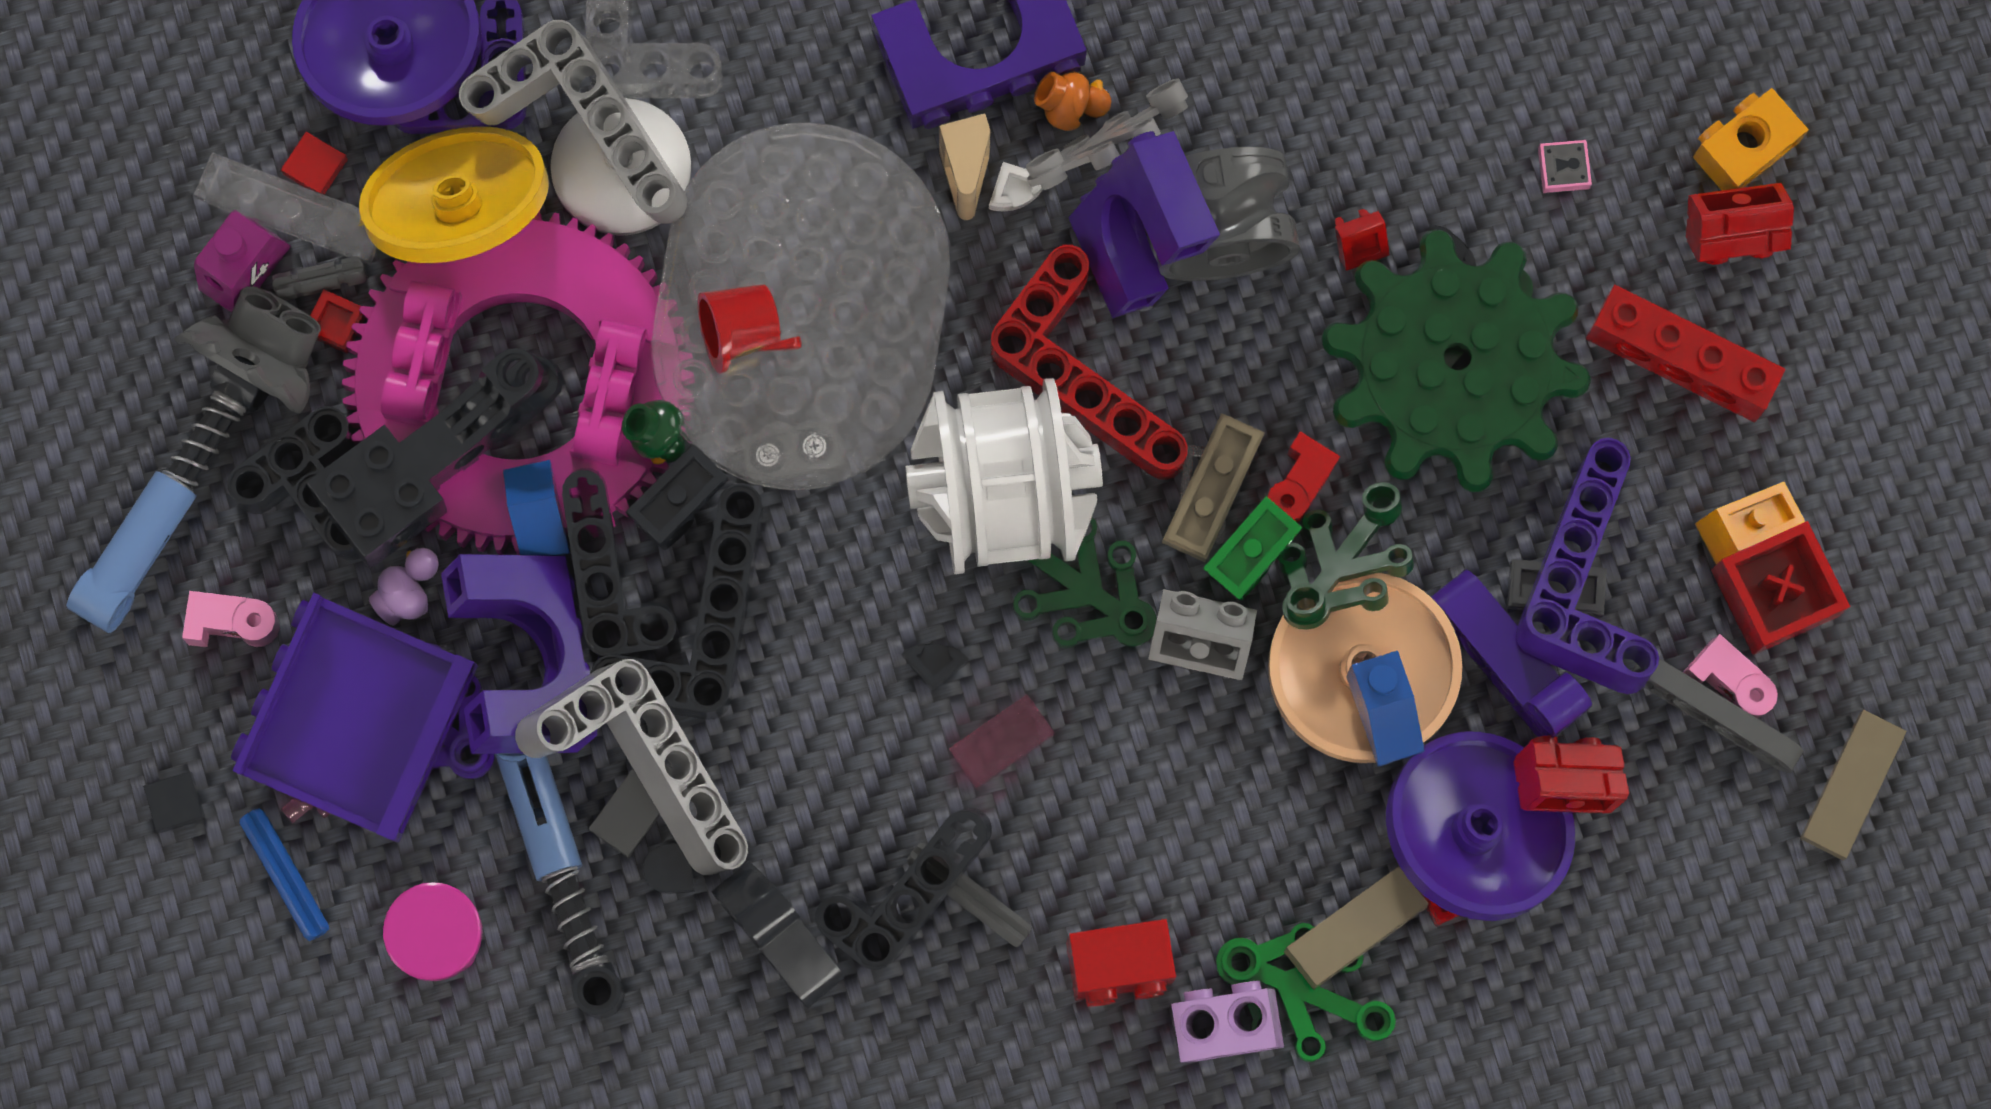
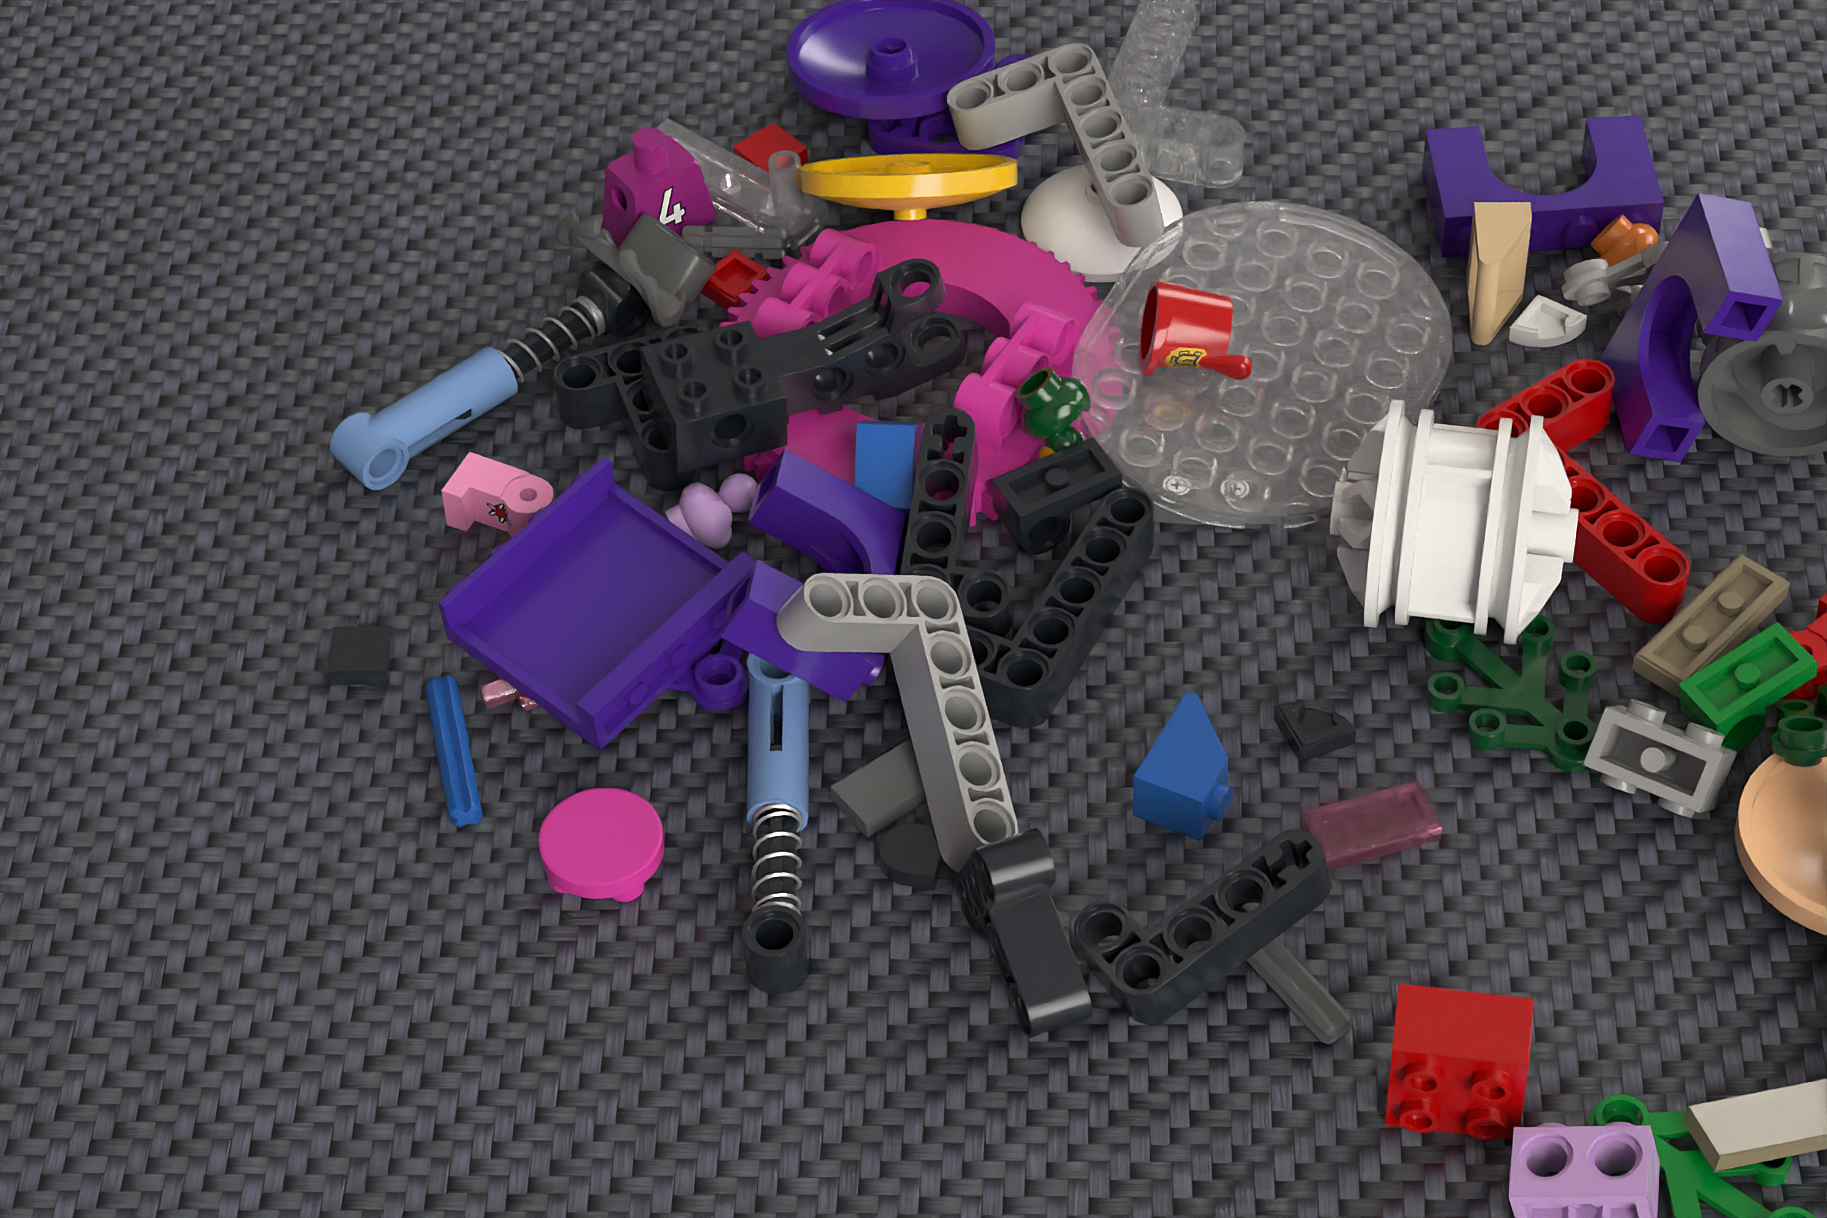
camera: 25 degrees right, 30 degrees down
(854, 741) = (1184, 774): none -> blue slope

